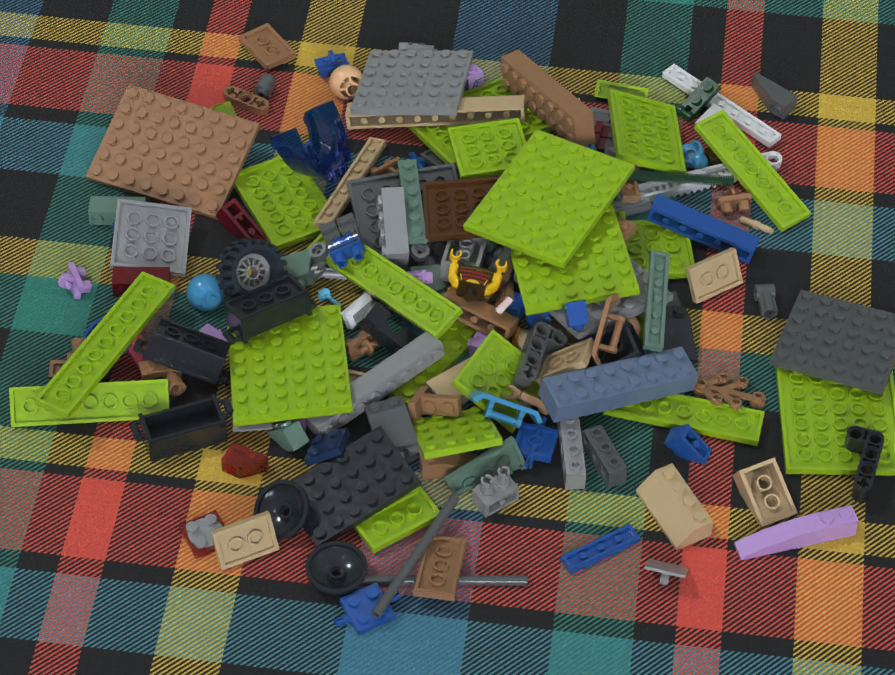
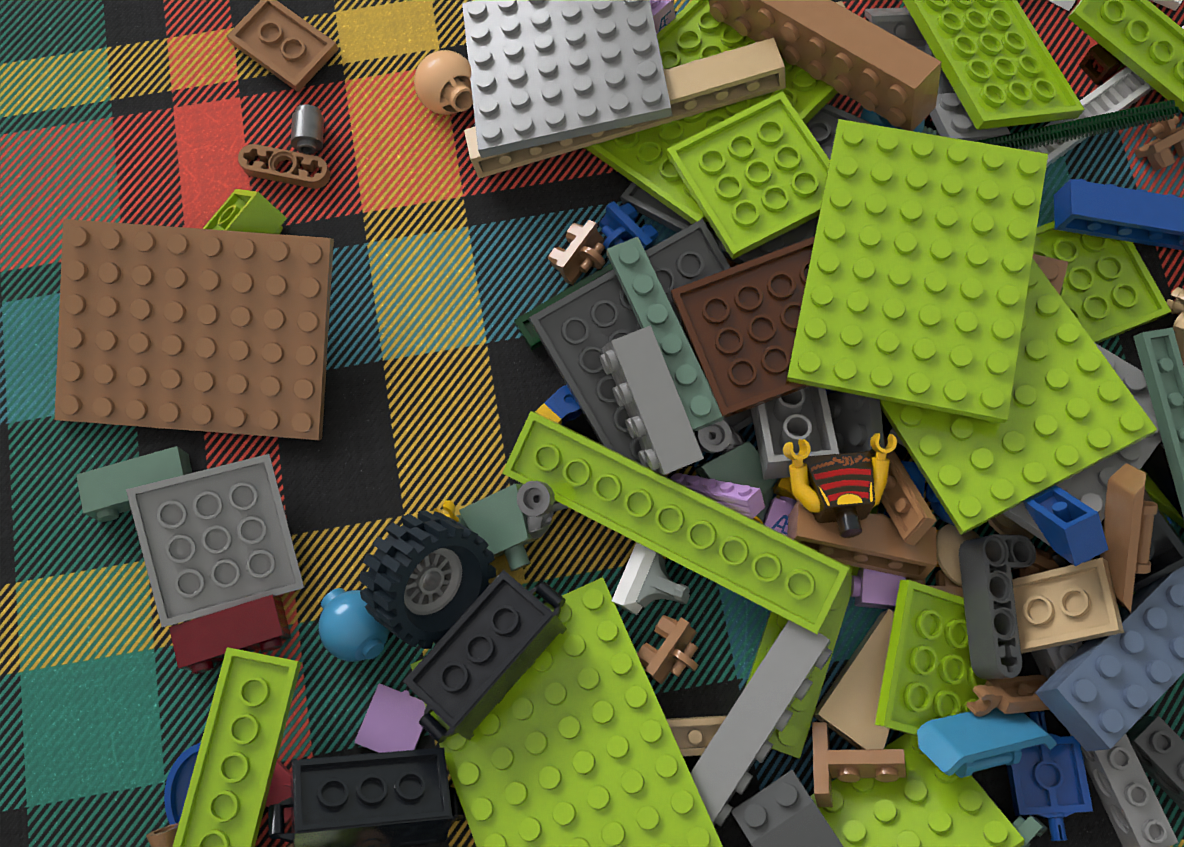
camera: 15 degrees left, 25 degrees up
(73, 280) = (102, 655): lavender hips -> none
(239, 222) = (369, 448): dark red slope -> none
(281, 201) = (426, 368): lime plate -> none
(324, 153) = (468, 267): clear blue windscreen -> none
(326, 294) = (563, 554): medium azure hand -> none
(330, 63) = (405, 49): blue hips -> none
(346, 246) = (572, 458): hips -> none
(359, 169) = (525, 300): tan tile -> none
(375, 323) = (689, 619): black arch -> none
(694, 155) = (1077, 64): dark azure hair -> none

